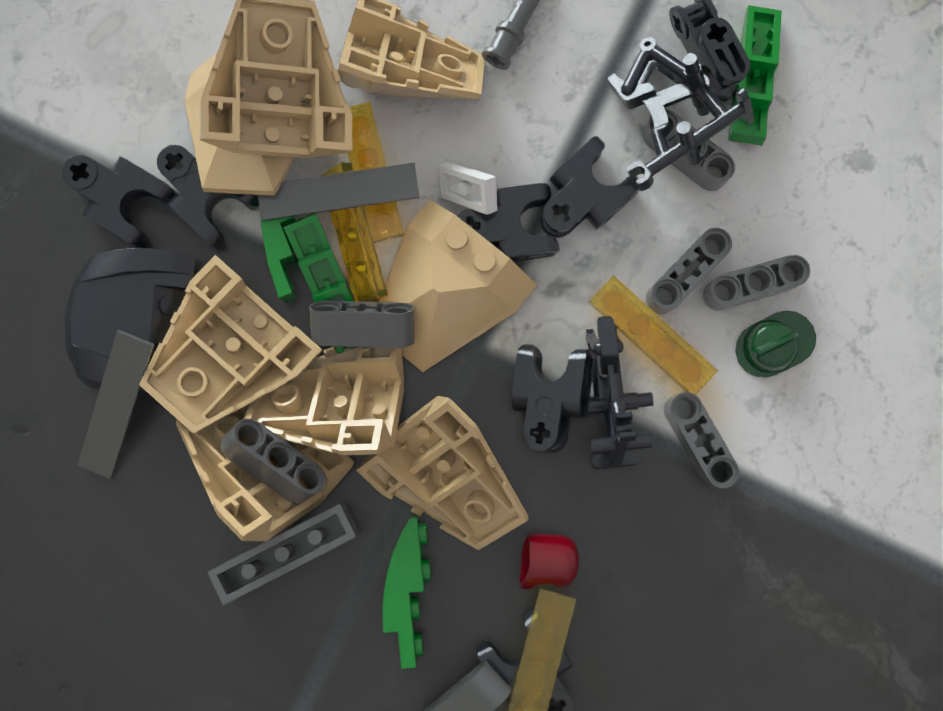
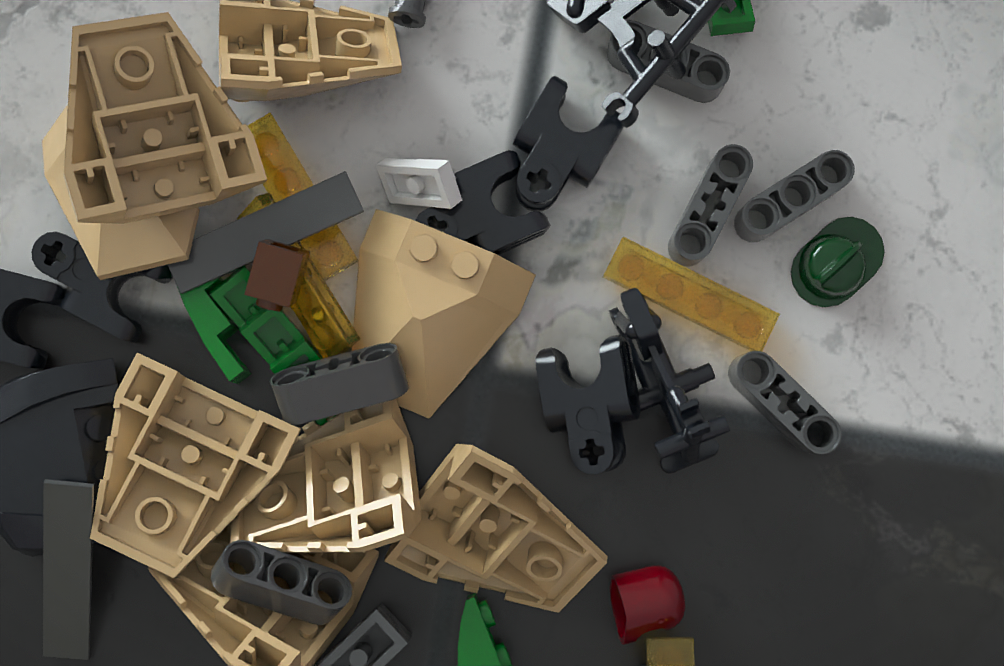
camera: 20 degrees left, 0 degrees up
(338, 226) = (277, 274): none -> reddish brown brick

